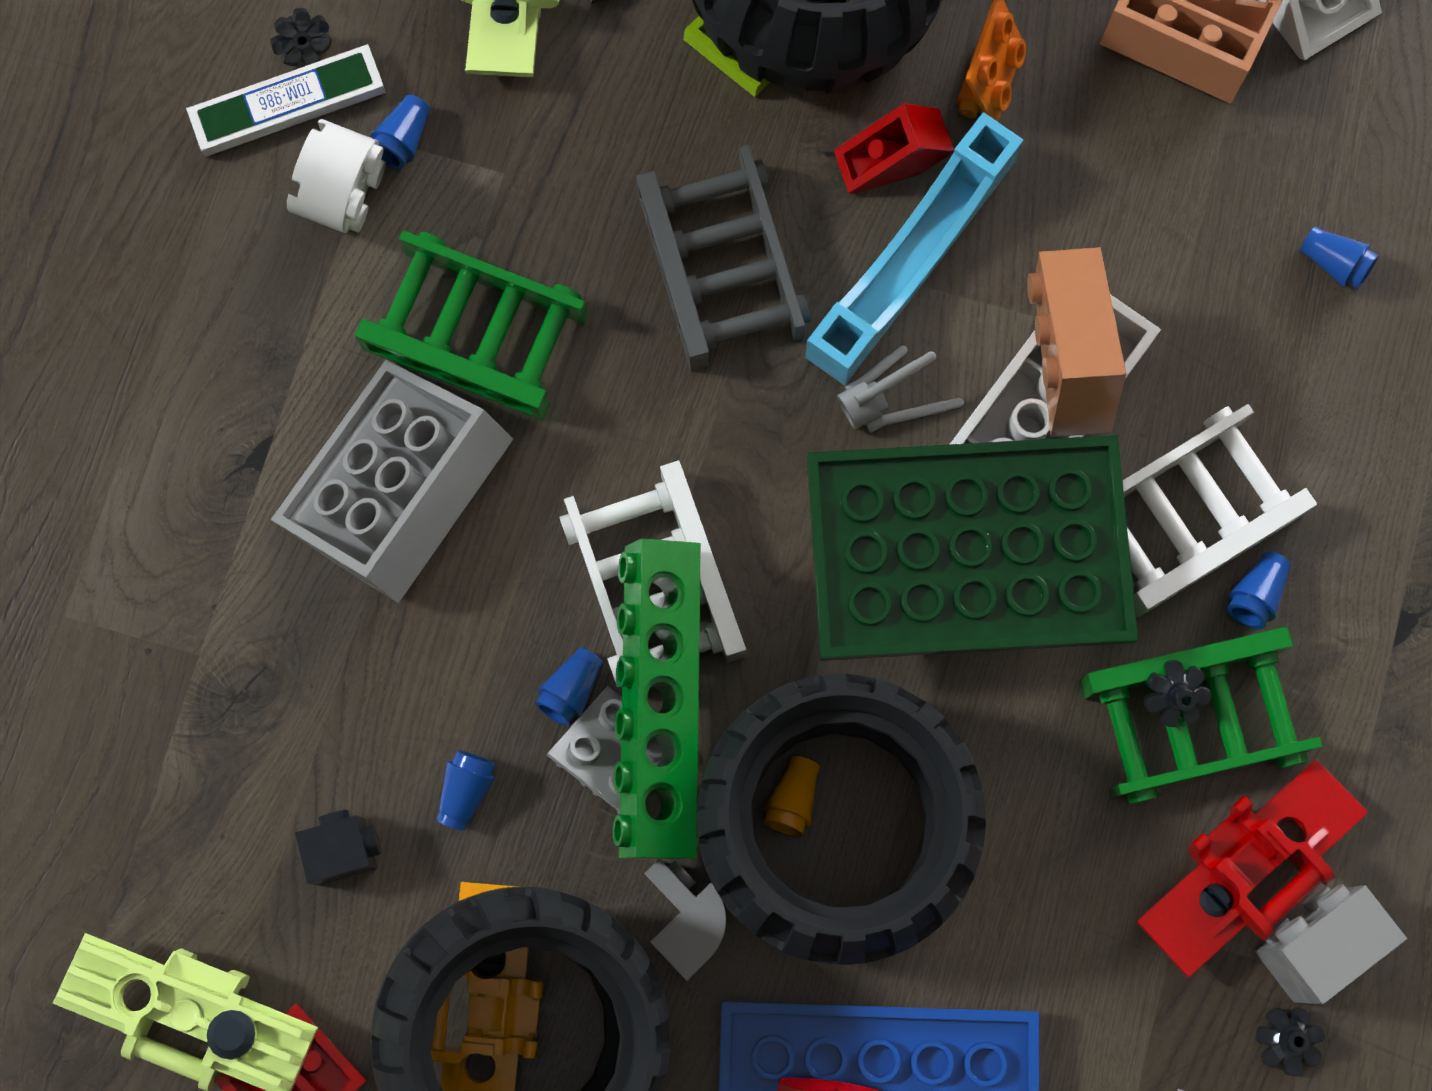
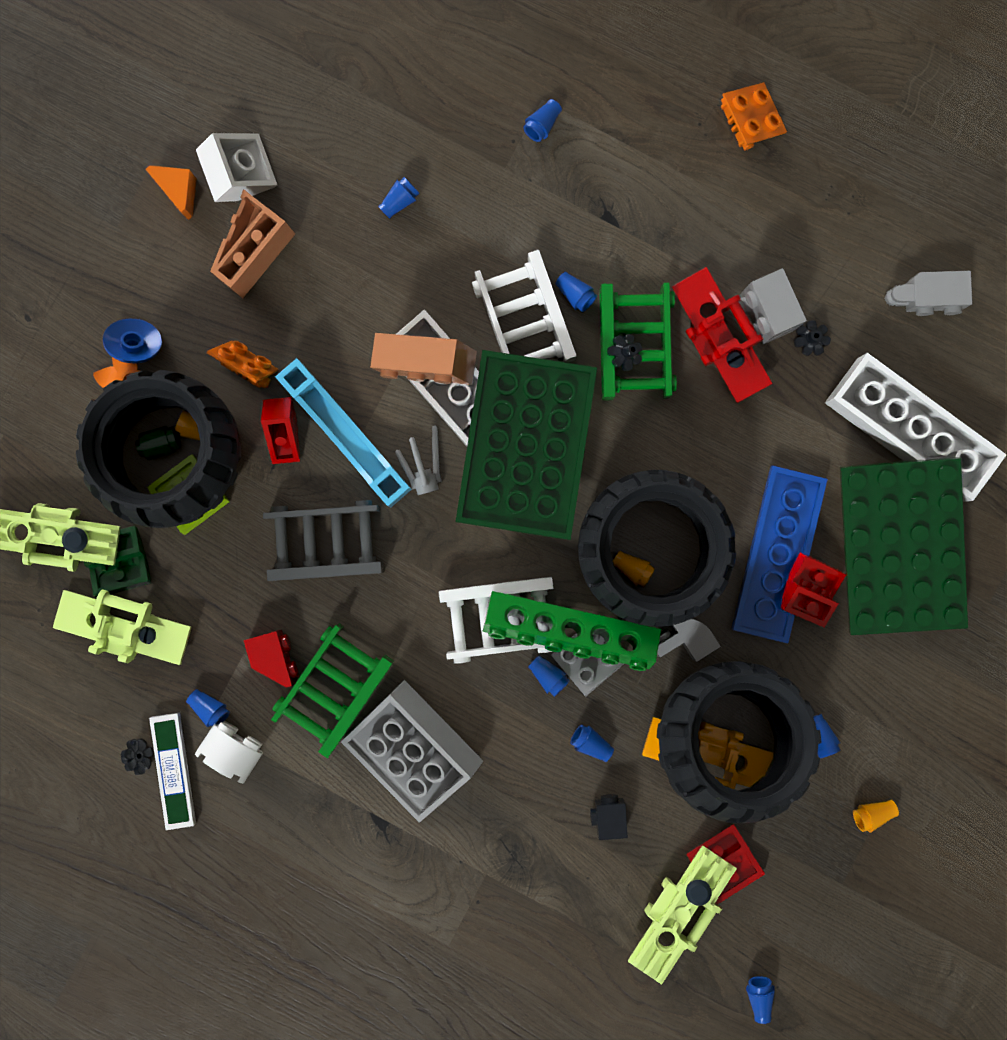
camera: 80 degrees left, 10 degrees up
(508, 213) = (270, 657): none -> red slope

